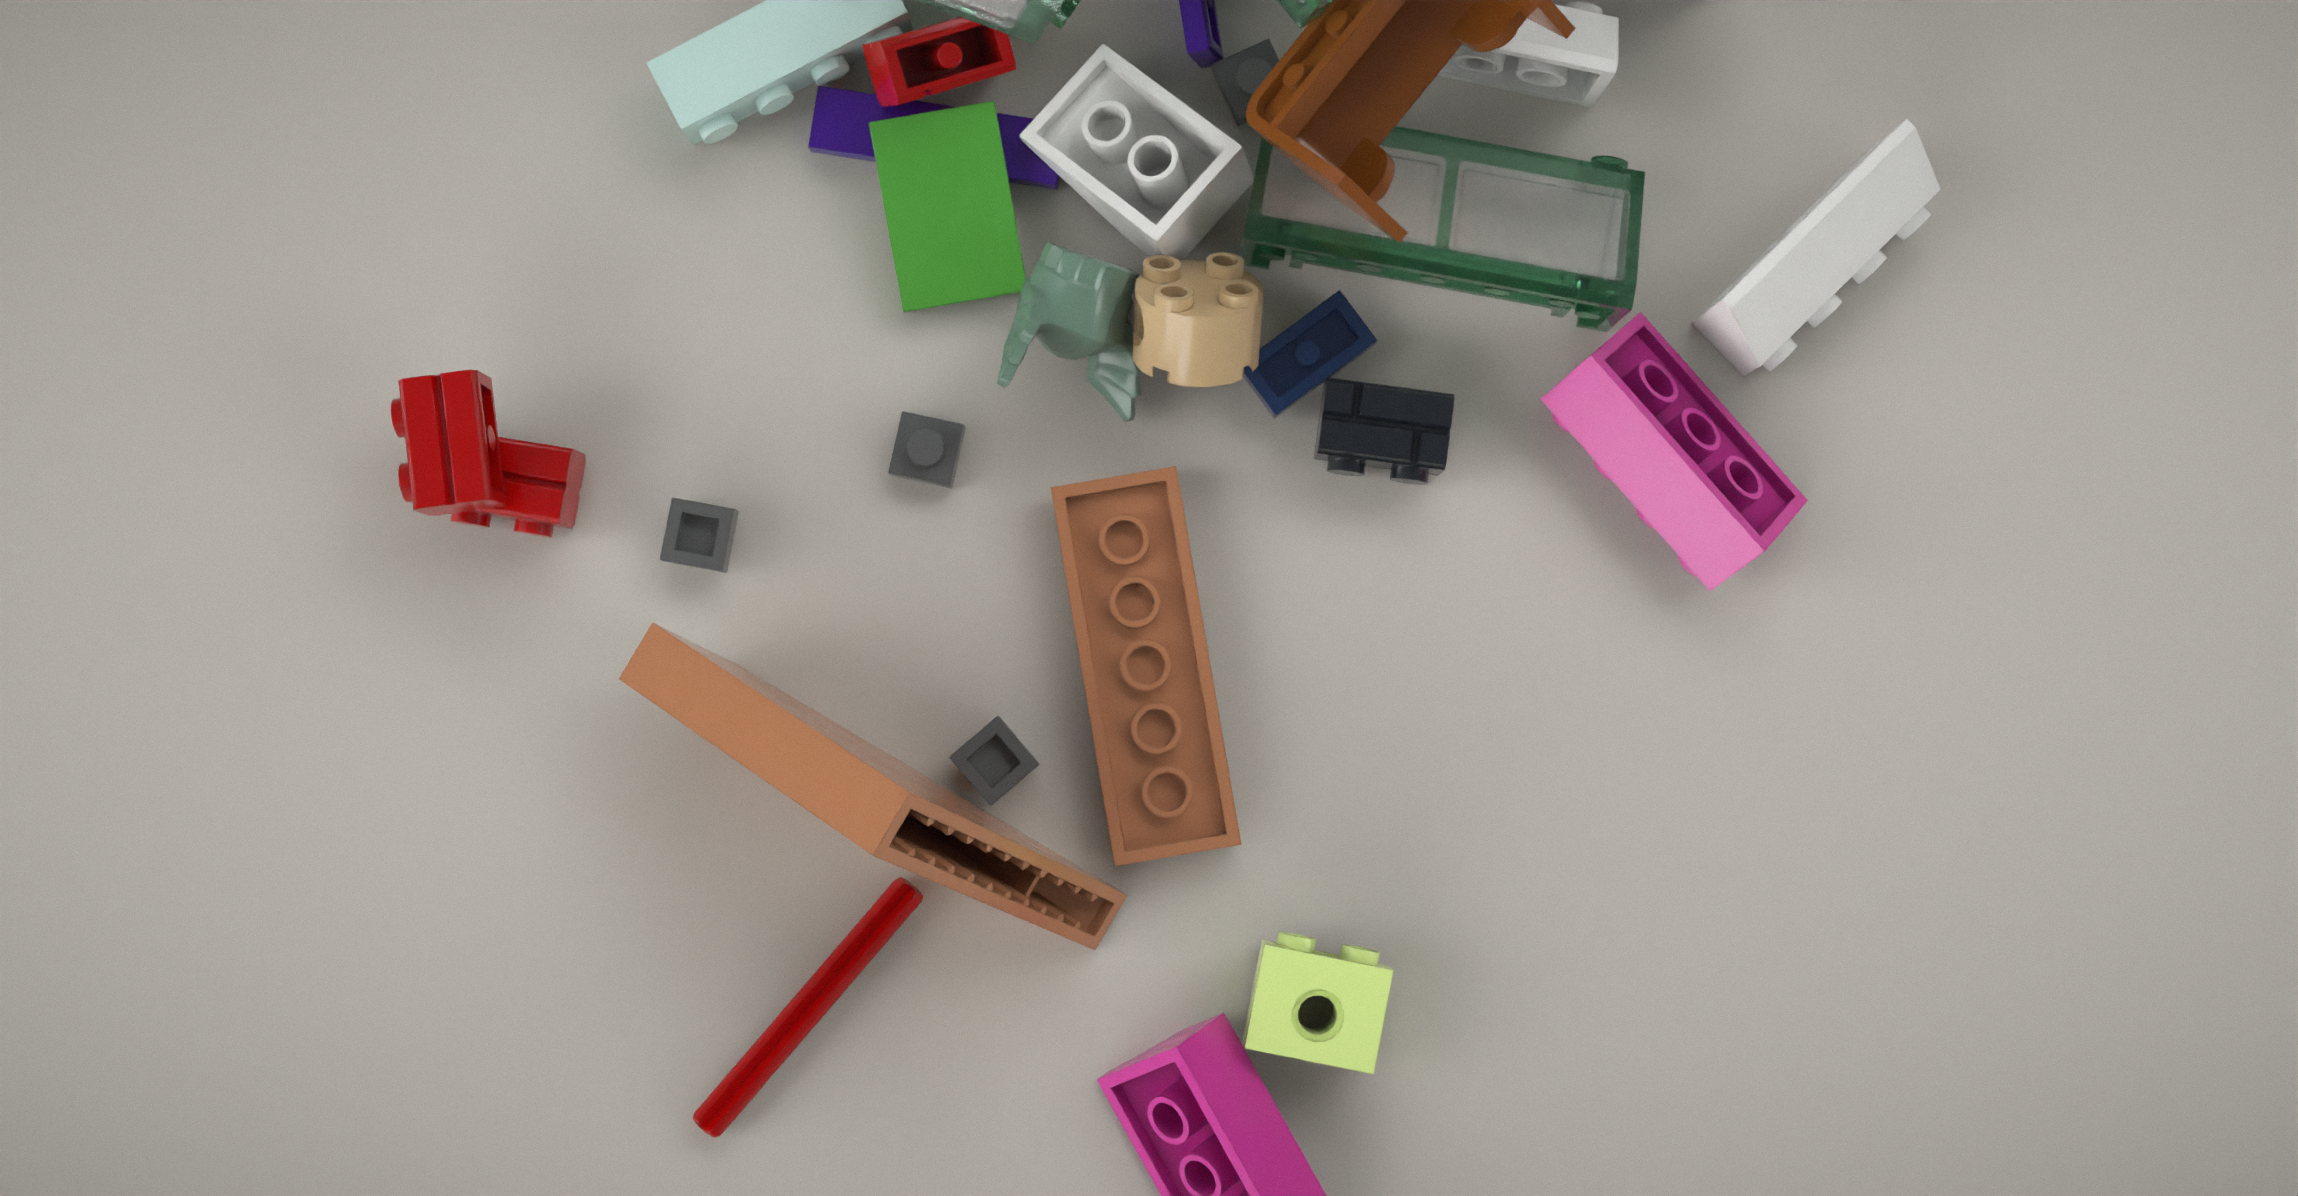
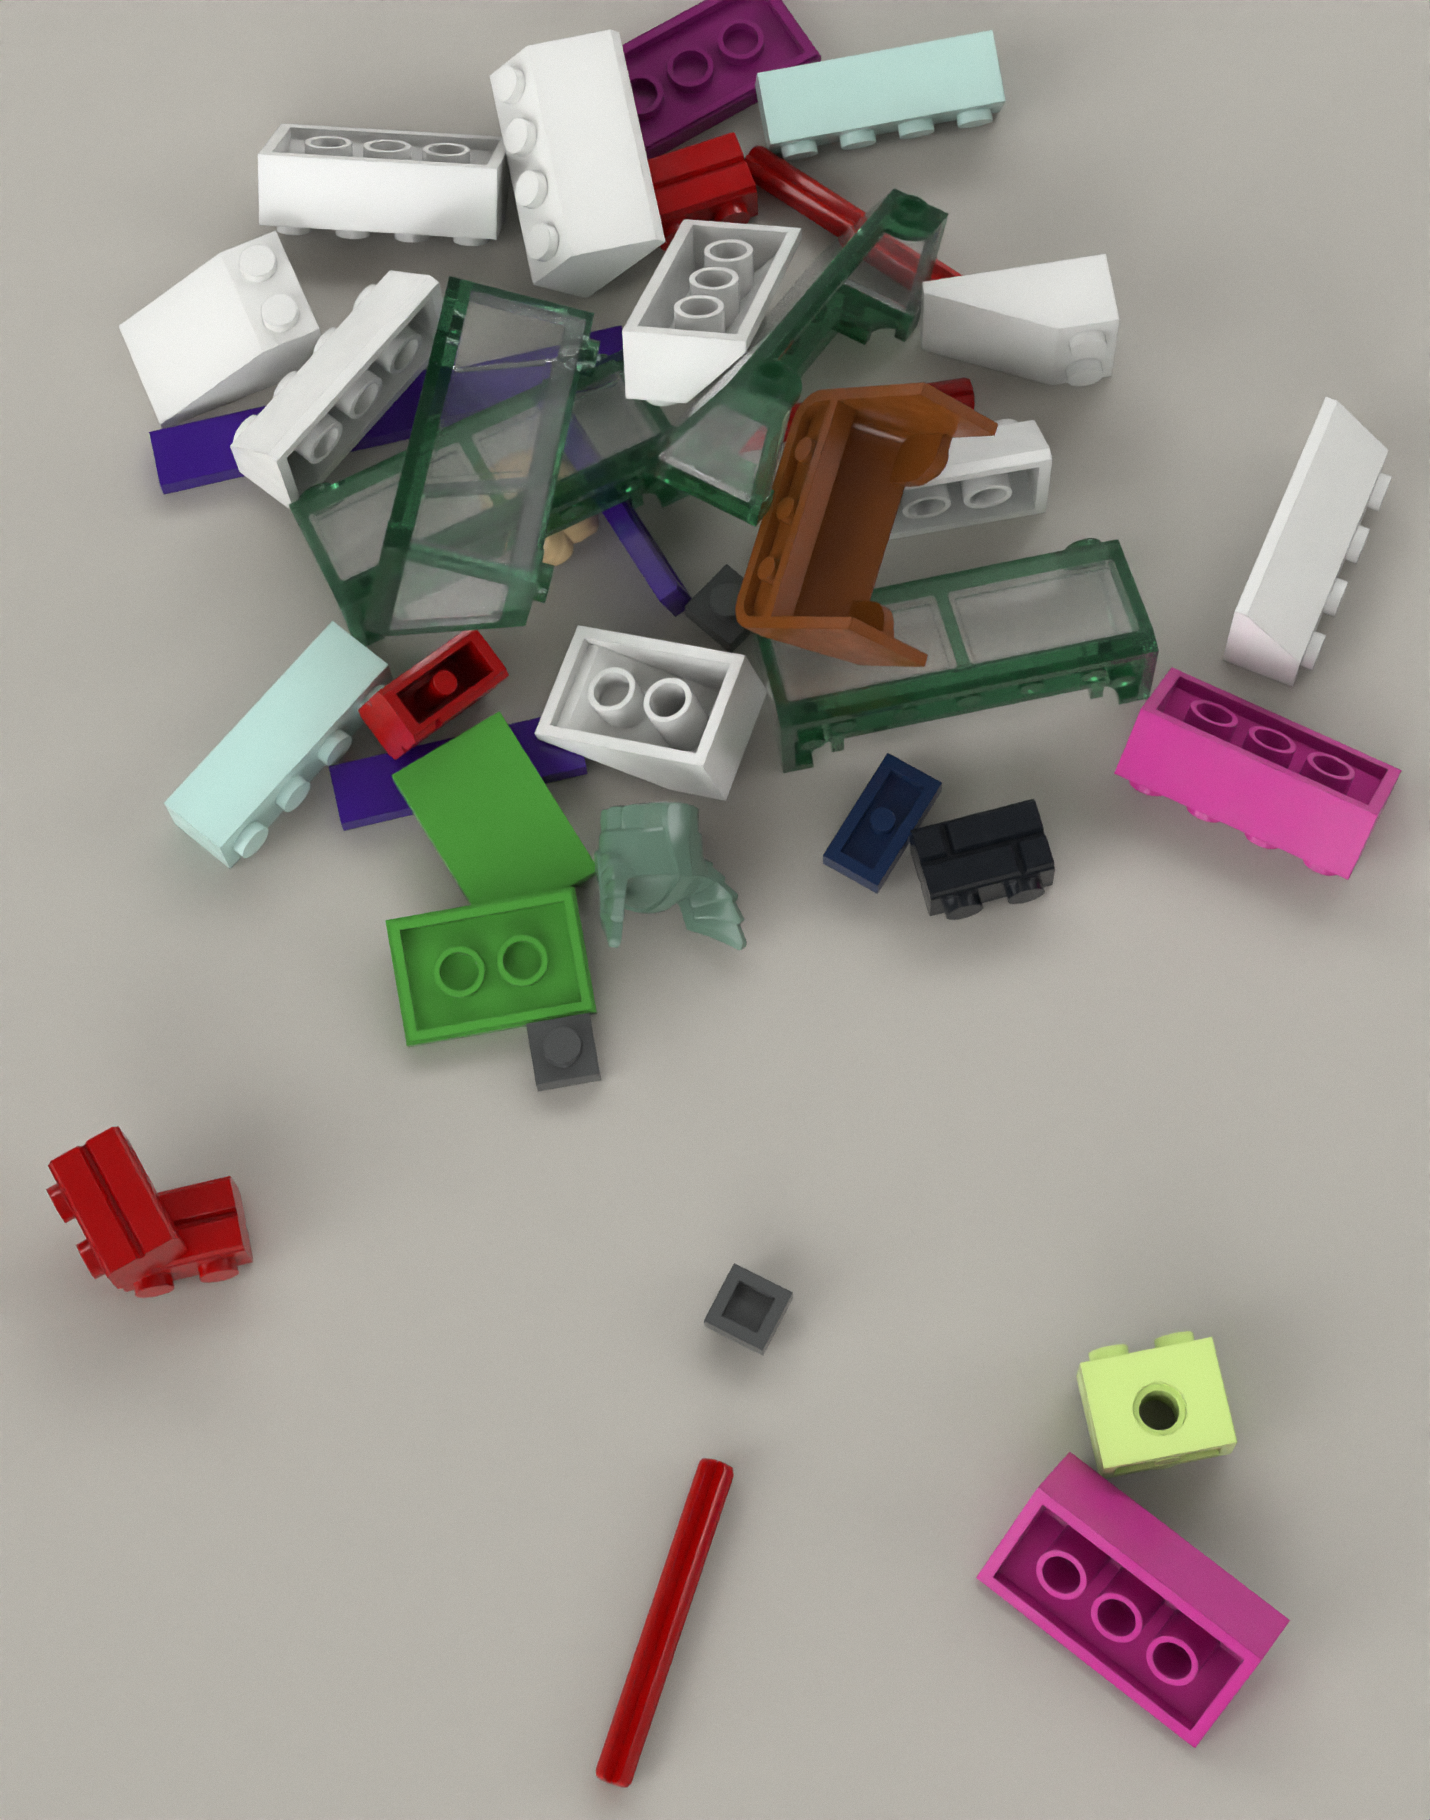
camera: 15 degrees left, 15 degrees down
(699, 535) = (379, 1214): dark grey plate -> none
(869, 792) = (647, 1357): nougat slope -> none
(891, 343) = (490, 966): none -> bright green tile
(1145, 666) = (856, 1165): nougat plate -> none
(1197, 319) = (768, 823): tan brick -> none

